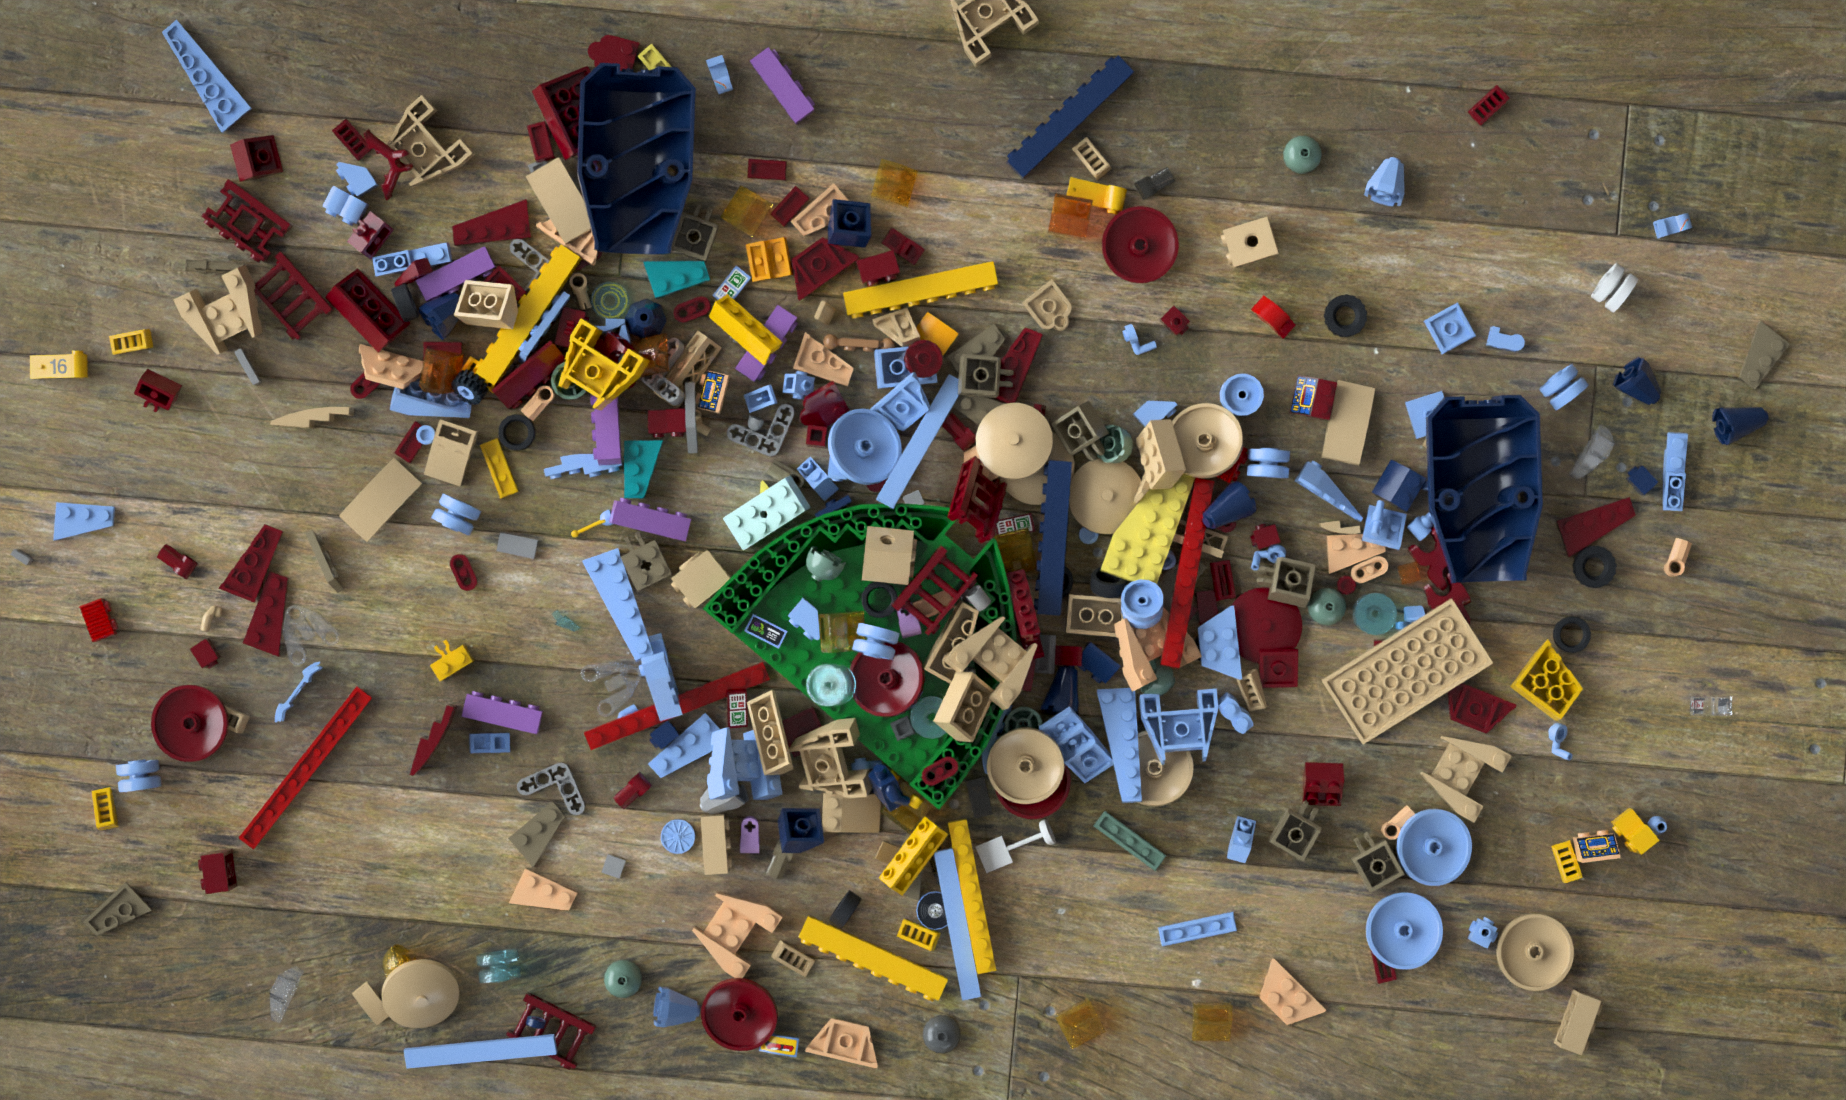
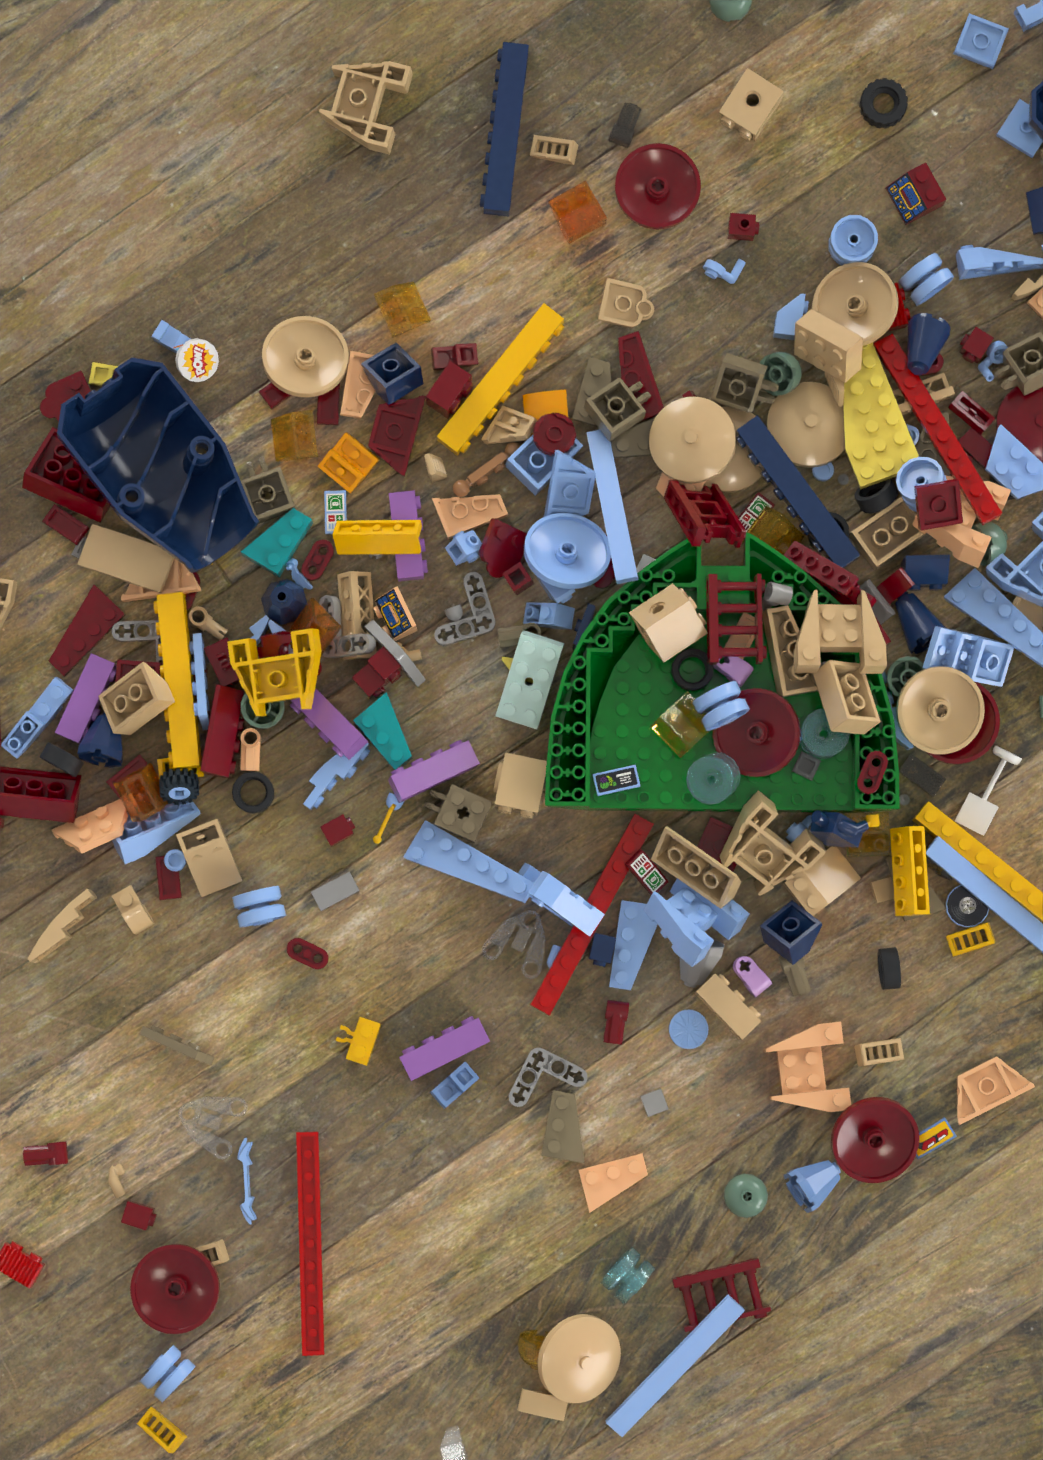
camera: 45 degrees left, 5 degrees down
(218, 871) = (309, 1400): dark red brick -> none
(250, 571) = (117, 1104): dark red wing -> none
(268, 618) = (170, 1142): dark red wing -> none
(368, 448) = (133, 910): none -> tan brick
(369, 387) = (88, 858): dark red plate -> none
(380, 500) = (181, 950): tan slope -> none
(415, 271) = (48, 723): dark red slope -> none
(428, 745) = (404, 1131): dark red slope -> none
(499, 468) = (263, 837): yellow tile -> none
(536, 1022) = (702, 1297): dark blue tile -> none
(553, 506) = (338, 830): none -> dark red brick
(564, 622) = (432, 923): clear light blue bar -> none
(604, 290) = (227, 608): clear light blue tile -> none
(671, 298) = (296, 575): none -> light blue piece
(723, 102) = (197, 360): none -> tile
(760, 398) = (441, 586): light blue slope -> none
(782, 86) = (235, 304): medium lavender brick -> none
(799, 162) = (305, 356): none -> tan dish
(807, 617) = (643, 737): light blue slope -> none
(823, 564) = (619, 679): sand green cylinder -> none
(873, 958) = (950, 991): yellow brick -> none
(962, 435) = (643, 475): dark red piece -> none
(1103, 196) = (595, 171): yellow door -> none
(1138, 627) = (938, 504): none -> dark red tile
(1273, 316) = (823, 152): red brick -> none
(1348, 423) = (966, 191): tan slope -> none

